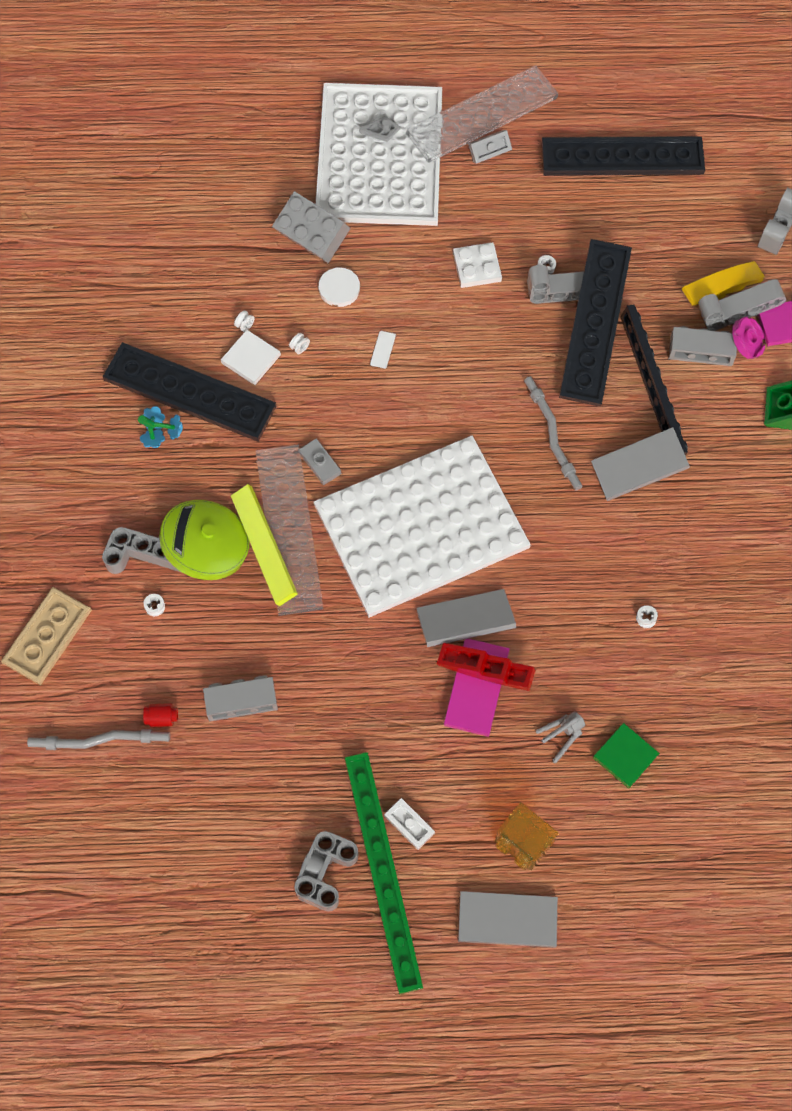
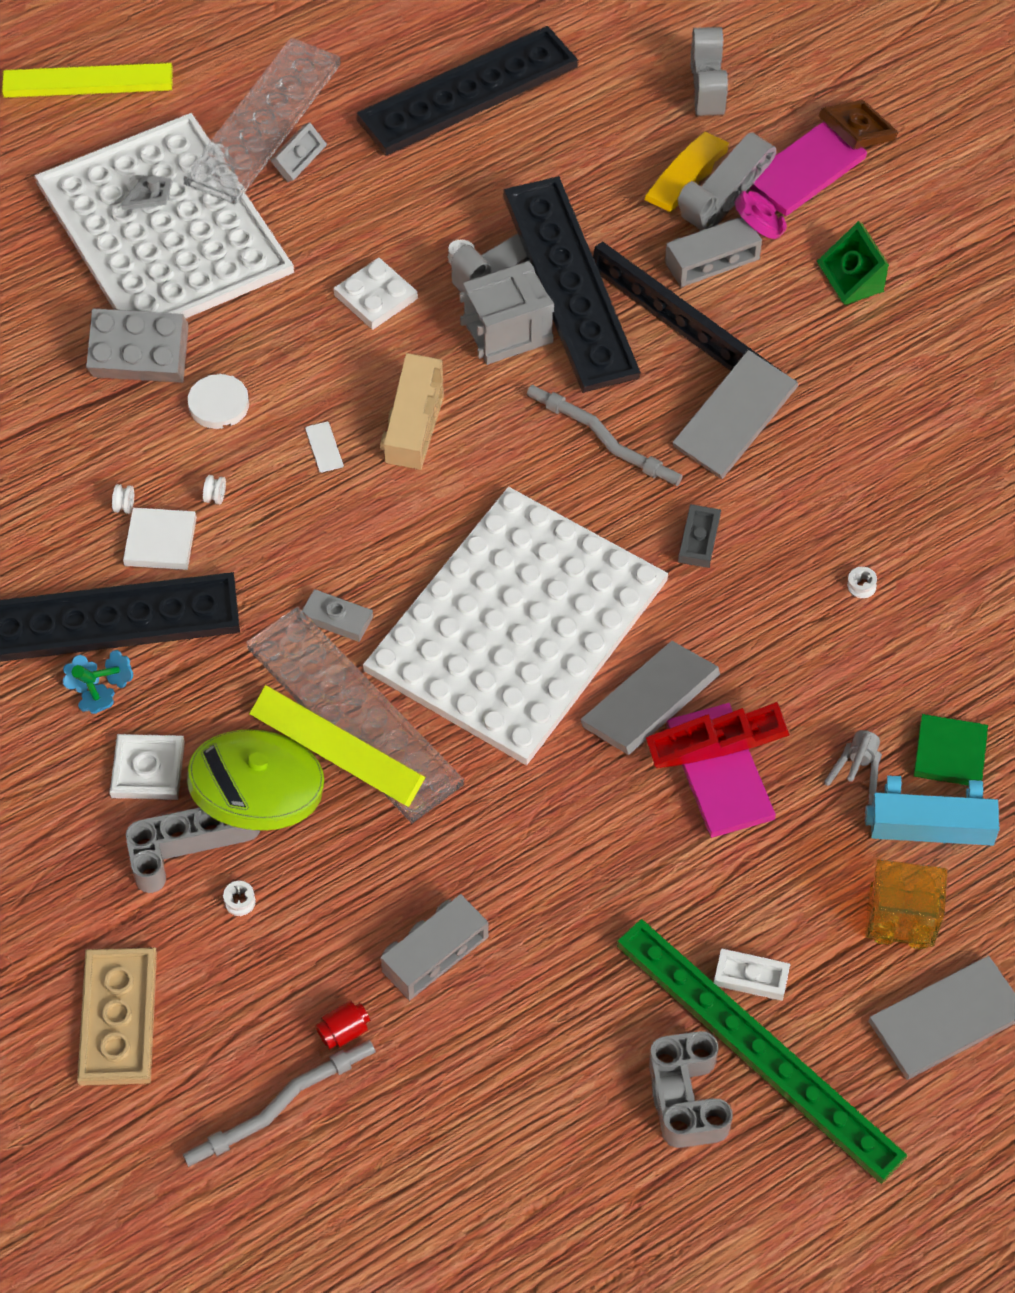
camera: 30 degrees left, 10 degrees down
(155, 495) = (147, 766): none -> white tile
(397, 33) = (87, 80): none -> neon yellow tile
(445, 357) = (414, 412): none -> tan wedge
(543, 321) = (507, 312): none -> light grey container
(566, 531) = (699, 536): none -> dark grey plate
(583, 792) = (933, 817): none -> medium azure brick

